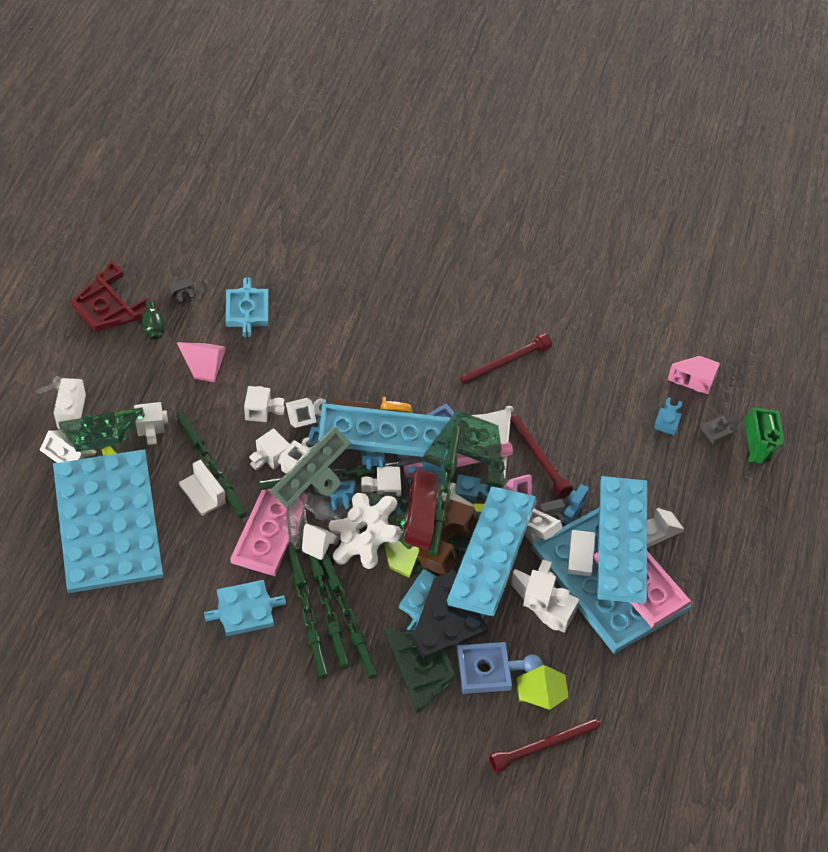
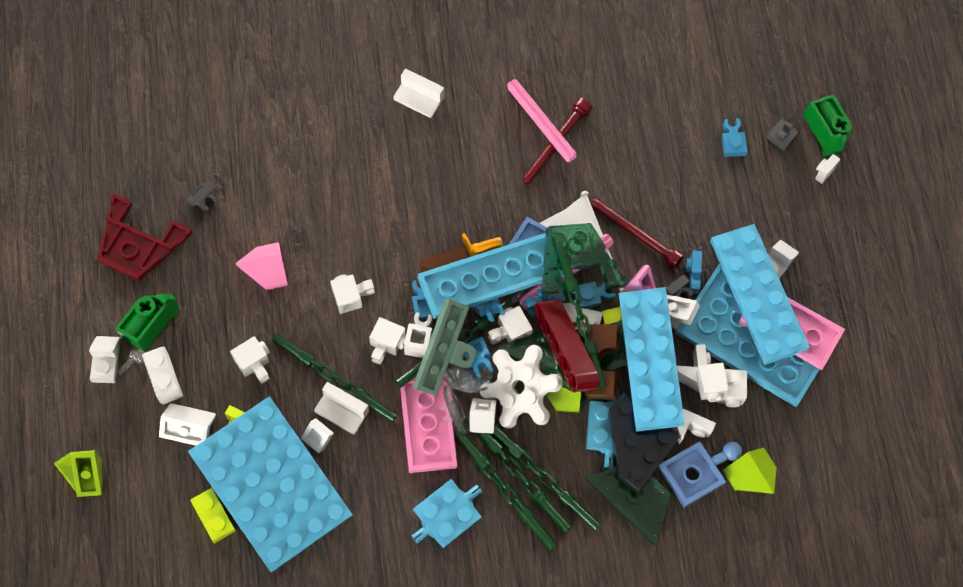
camera: 25 degrees left, 15 degrees up
(33, 376) = (105, 359): none -> white slope
(46, 527) = (212, 515): none -> neon yellow plate
(84, 358) = (147, 319): none -> green piece
(100, 430) = (213, 393): clear green wing -> none
(153, 321) = (193, 246): dark green plant -> none
(169, 500) = (317, 435): none -> white plate
(246, 307) = (278, 189): medium azure plate -> none
(303, 411) = (396, 285): white brick -> none
(407, 282) = (419, 93): none -> white panel
(500, 760) = (749, 557): dark red piece -> none
(501, 338) = (541, 120): none -> bright pink axle
(510, 627) = (698, 425): none -> white slope
(581, 553) = (725, 321): white tile -> none
(694, 373) = (739, 82): bright pink slope -> none
(744, 470) = (826, 167): none -> white plate

